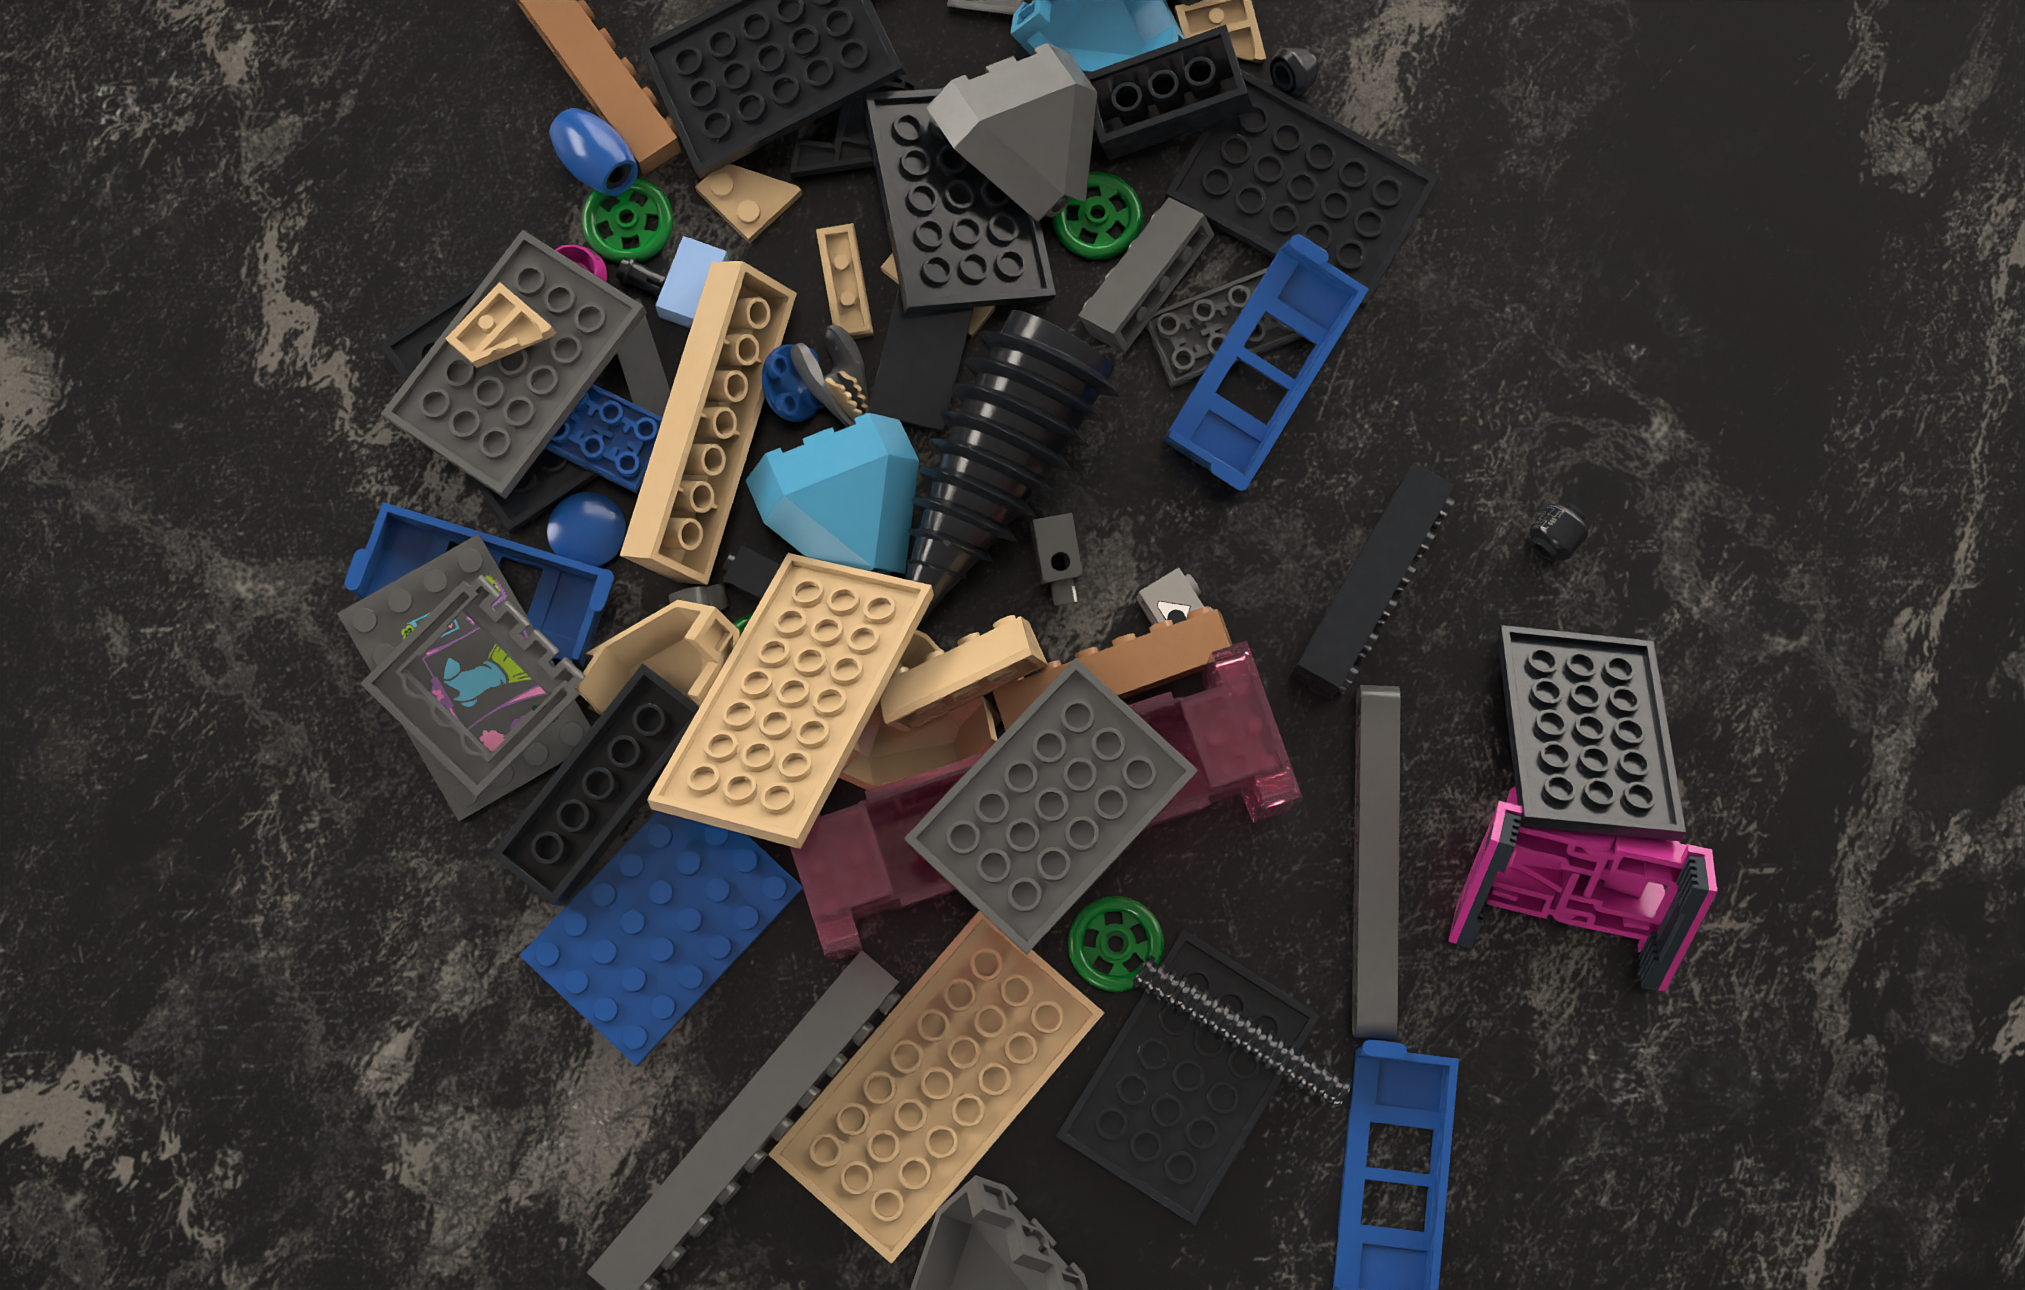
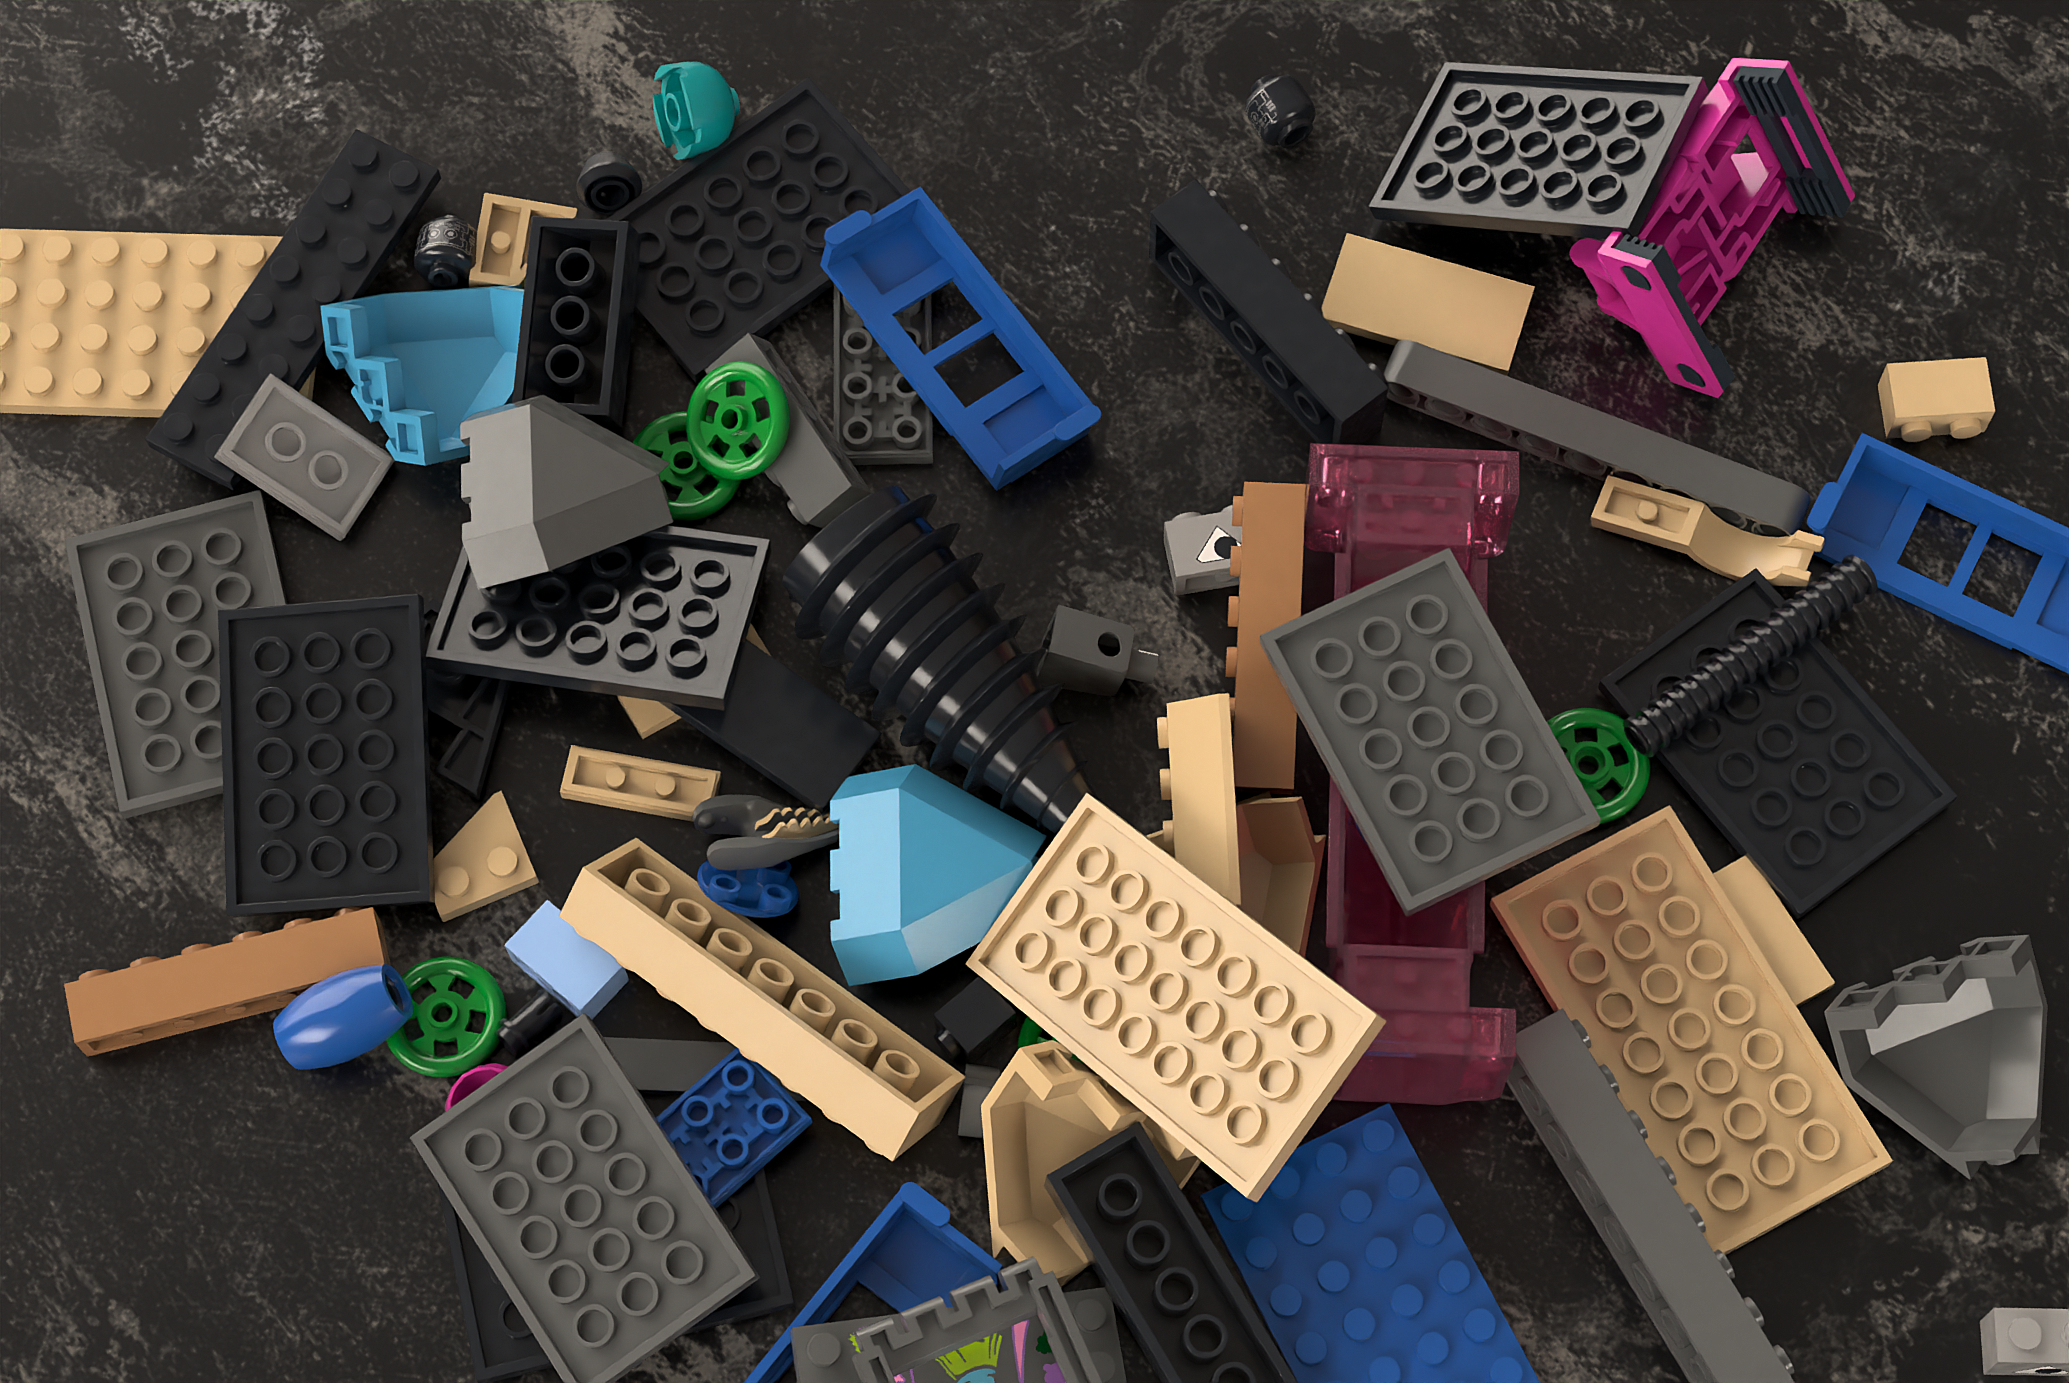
camera: 60 degrees left, 10 degrees down
(498, 328) = (535, 1203): tan wing -> none
(587, 529) = (827, 1207): blue dish -> none
(1037, 1120) = (1774, 931): none -> tan tile
(1135, 235) = (770, 431): none -> green plate
(1334, 967) = (1706, 538): none -> tan piece
(1378, 108) = (694, 108): none -> teal cylinder
(1440, 698) = (1426, 300): none -> tan tile
(1517, 1109) = (1936, 398): none -> tan brick

